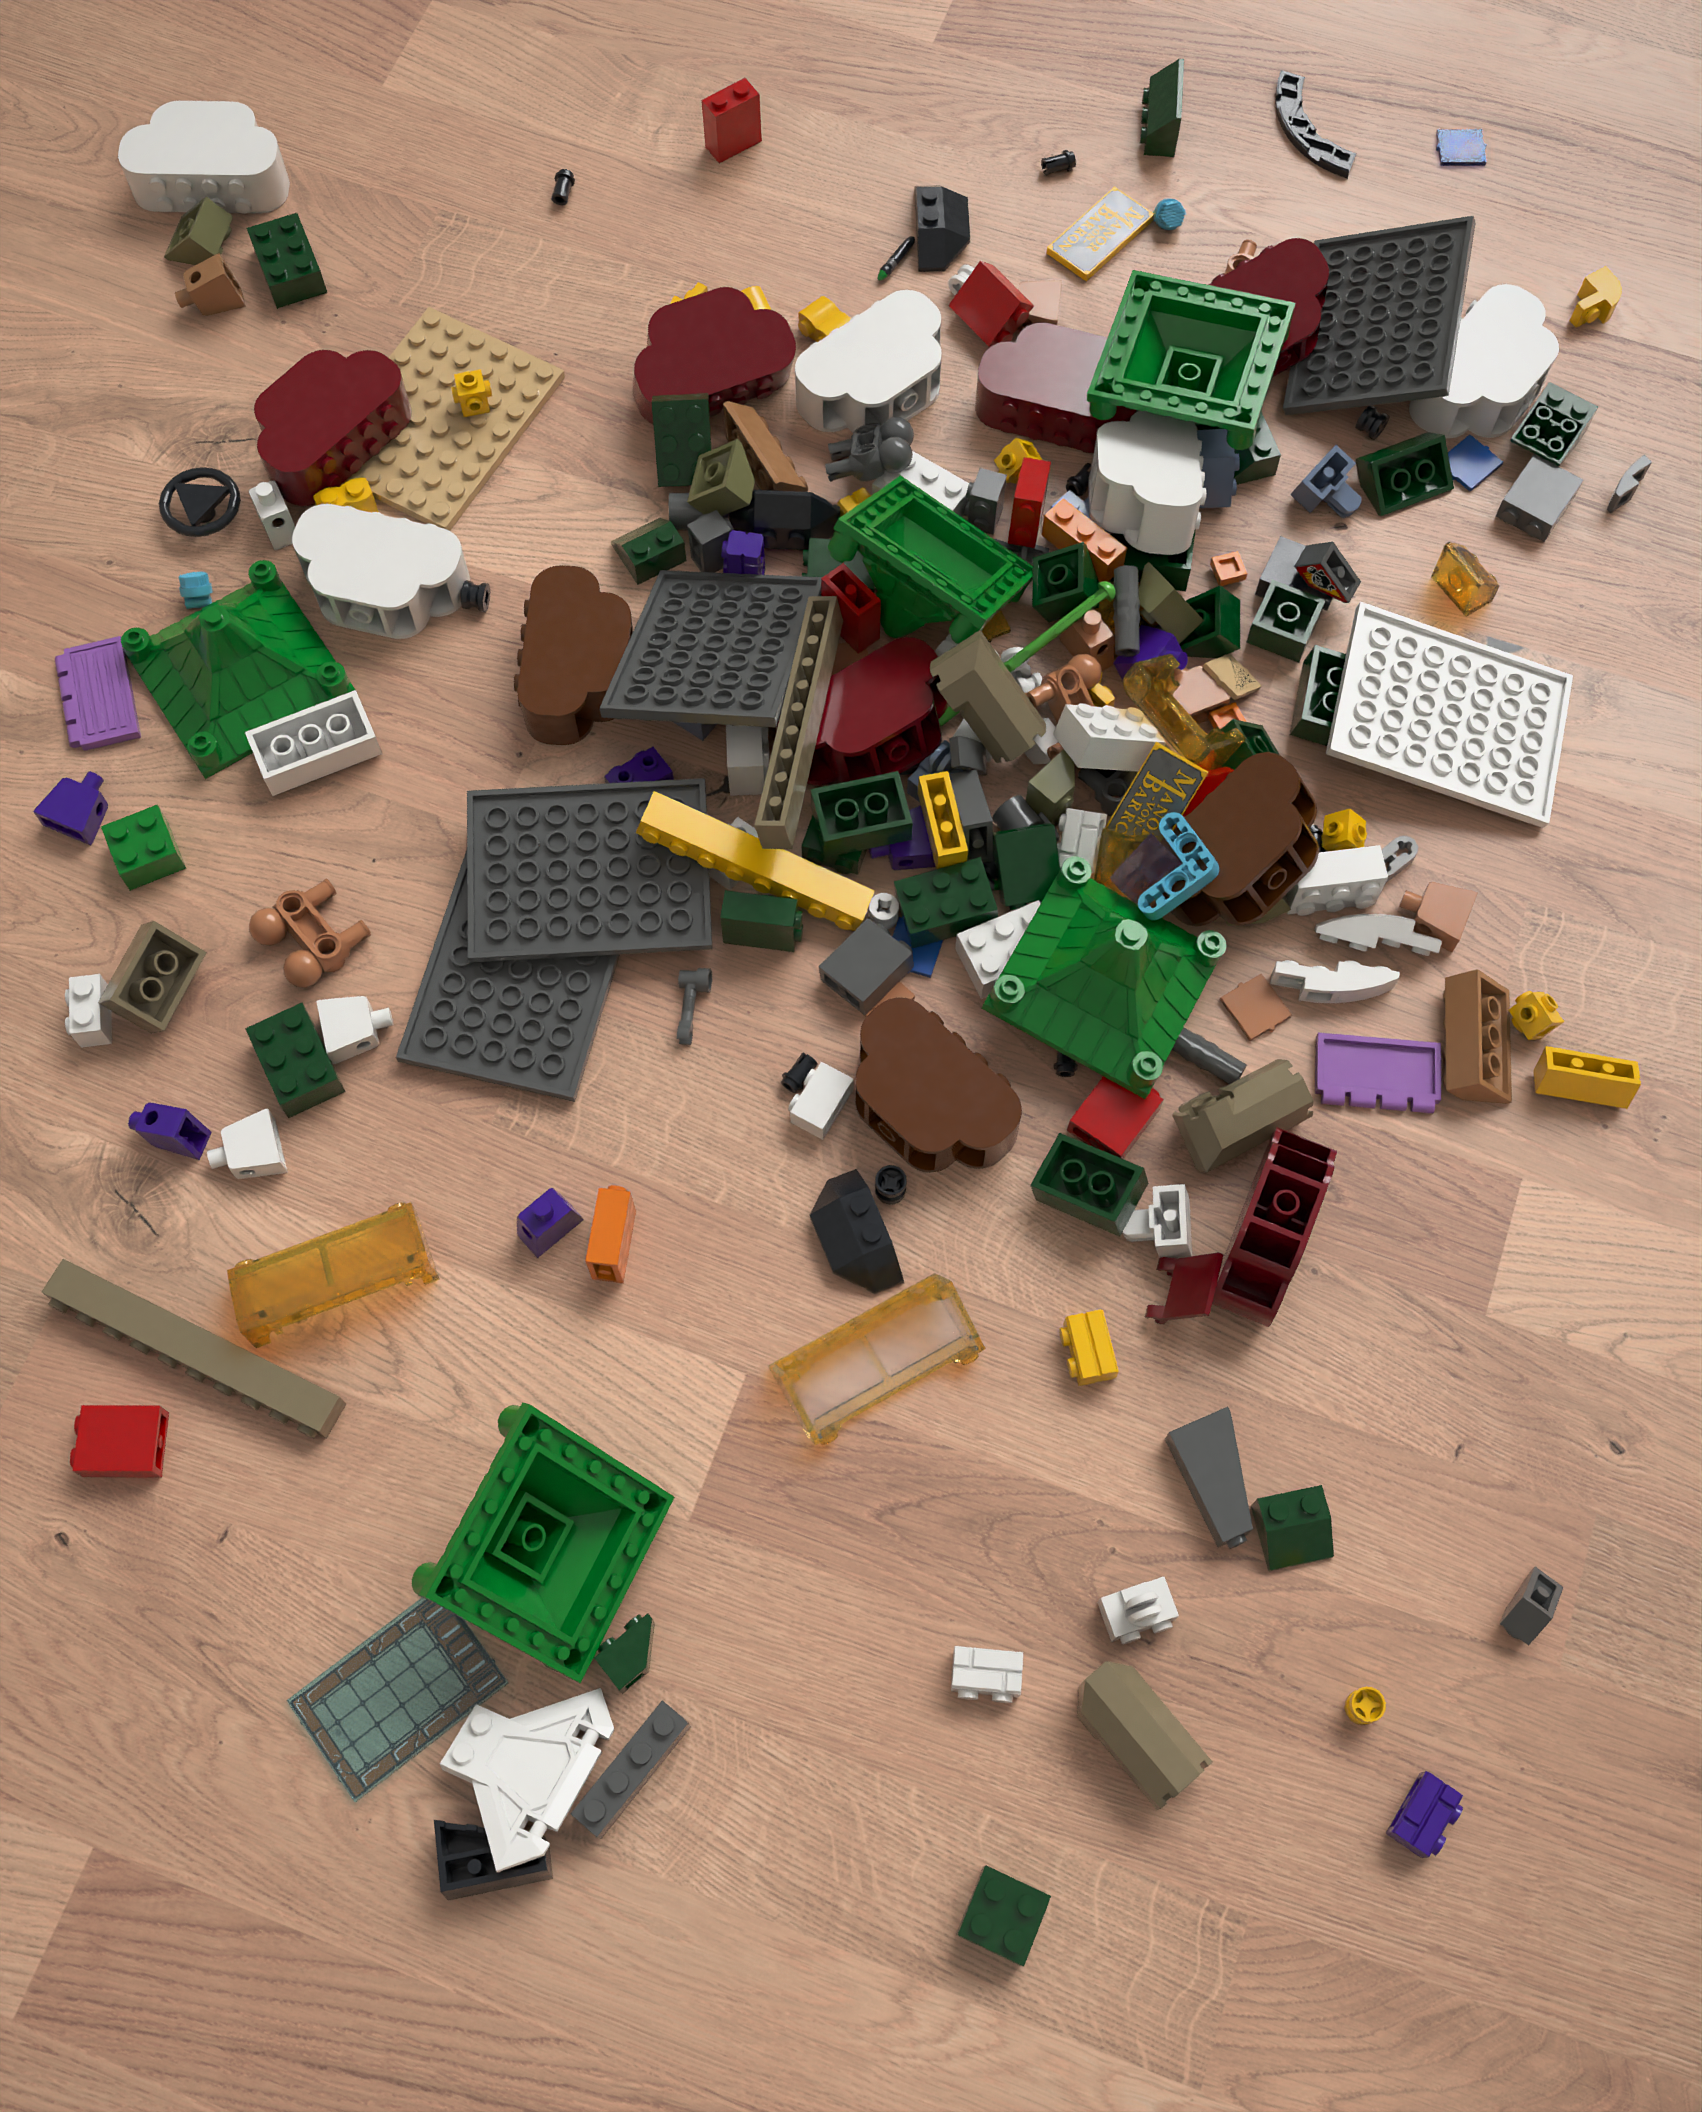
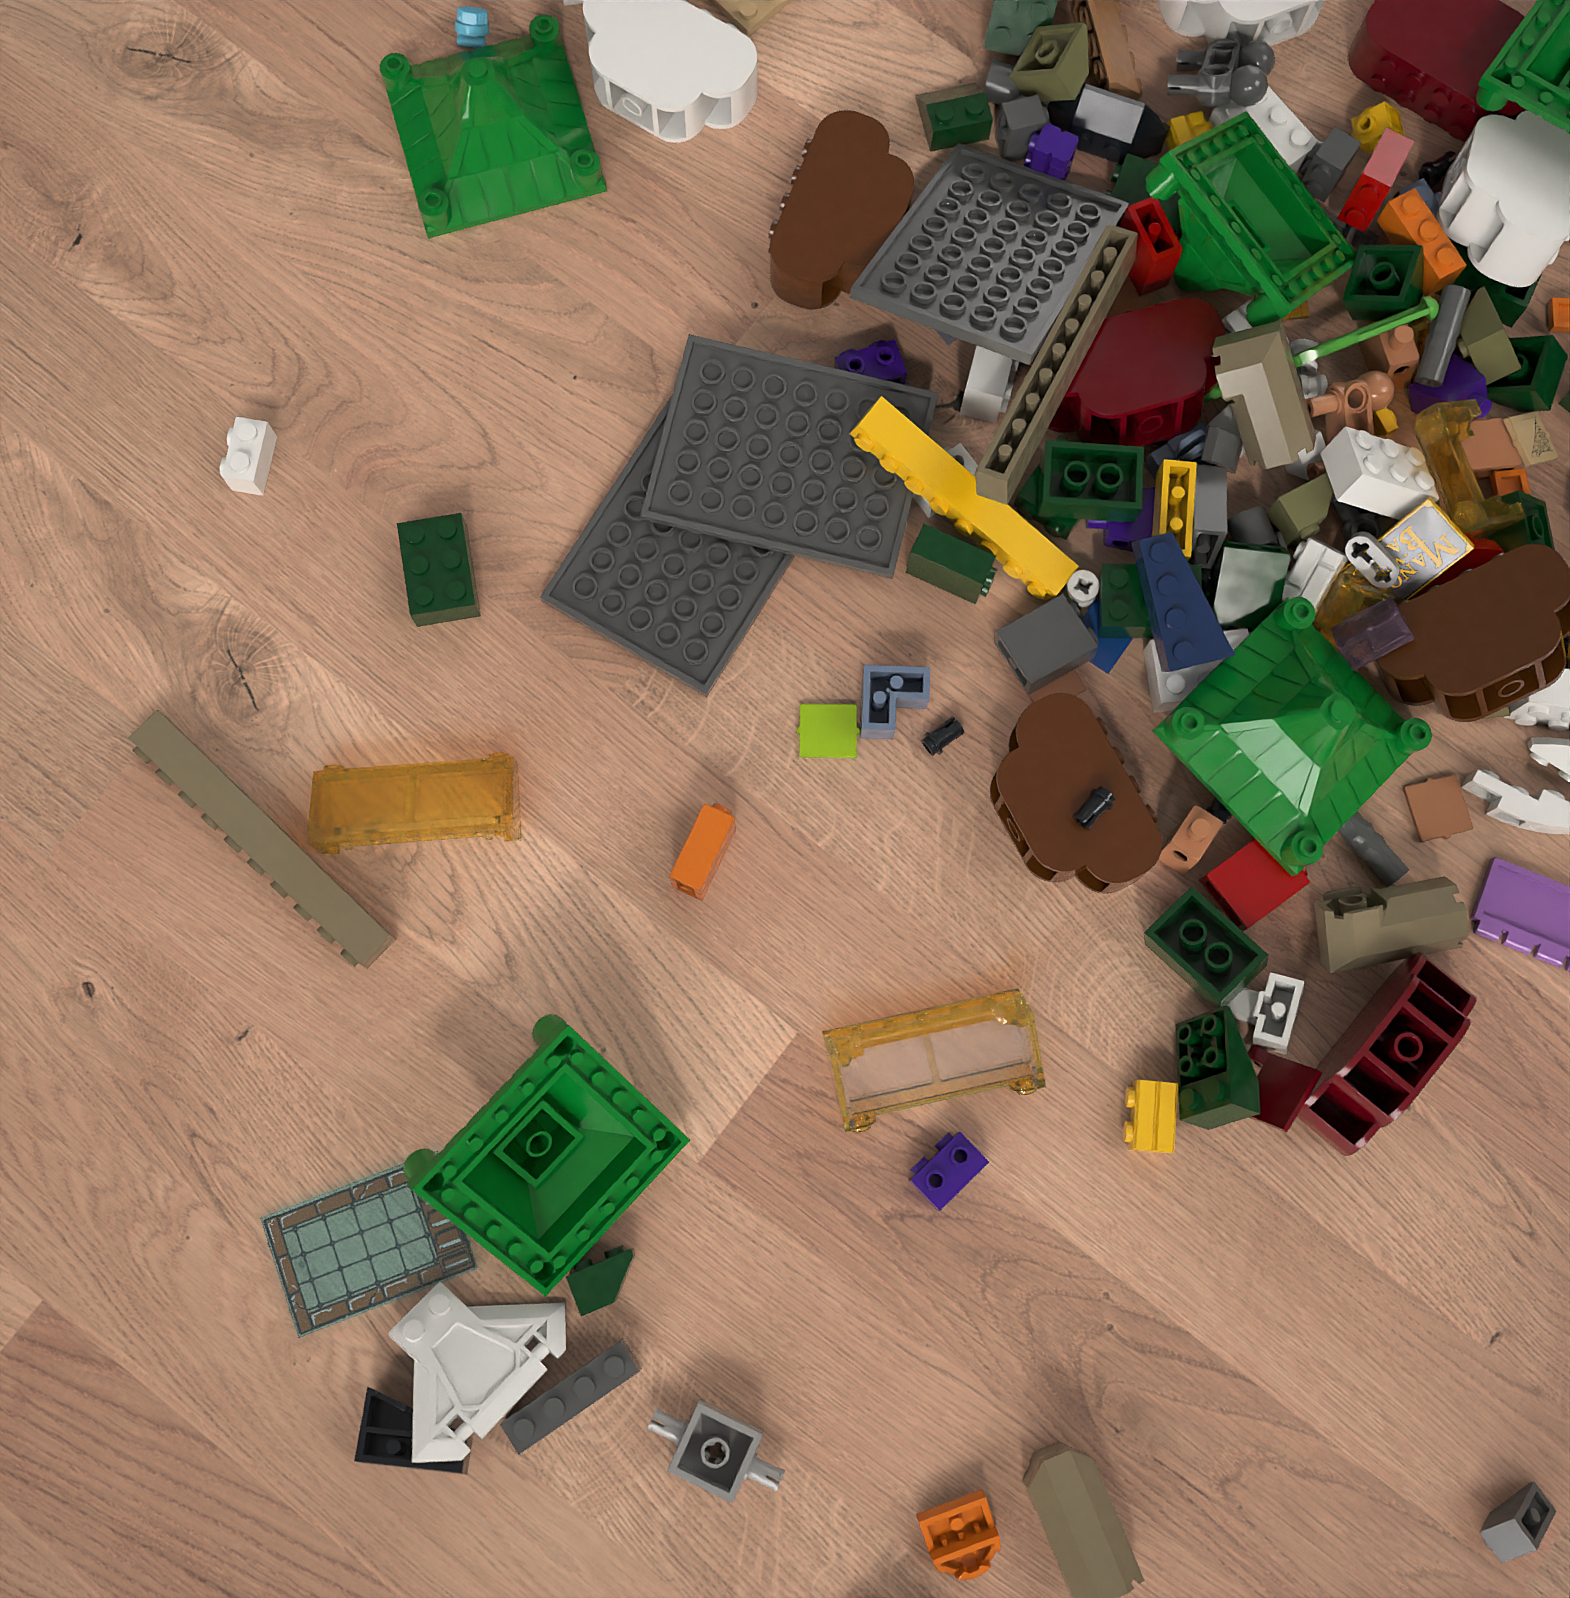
camera: 15 degrees right, 10 degrees up
(74, 808) = (289, 232): dark purple torso -> none
(97, 694) = (343, 114): medium lavender hinge -> none
(120, 1441) = (166, 911): red brick -> none
(143, 847) = (346, 296): green brick -> none
(152, 977) = (319, 440): dark tan brick -> none
(171, 1129) = (291, 601): dark purple torso -> none
(250, 1147) = (371, 648): white torso -> none
(309, 930) = (475, 473): nougat piece -> none
(313, 743) = (546, 233): white brick -> none
(350, 1026) = (503, 550): white torso -> none
(475, 596) = (757, 116): black wheel -> none
(546, 1221) = (644, 816): dark purple torso -> none
(693, 983) = (862, 607): dark grey brick -> none
(694, 1099) = (828, 731): none -> lime piece
(737, 1045) = (887, 689): none -> sand blue brick
(766, 1757) = (725, 1472): none -> light grey brick
(820, 1100) = (956, 773): white brick -> none
(855, 1234) = (949, 923): black wedge -> none
(890, 1178) = (1004, 879): black wheel -> none
(920, 1452) = (947, 1170): none -> dark purple brick
(949, 1088) = (1094, 807): none -> black pin
(969, 896) = (1178, 611): none -> dark blue wedge
(987, 1673) = (947, 1413): white brick -> none
(1035, 1782) = (961, 1536): none -> orange slope
(1045, 1092) = (1191, 838): none -> nougat torso
(1123, 817) = (1366, 564): none -> light grey beam
(1131, 1289) = (1214, 1071): none -> dark green slope
(1138, 1610) = (1117, 1399): white brick -> none
(1188, 871) = (1419, 650): medium azure beam -> none
(1213, 1472) = (1237, 1286): dark grey slope -> none
(1294, 1527) = (1301, 1366): dark green slope -> none
(1371, 1703) = (1321, 1571): yellow wheel -> none

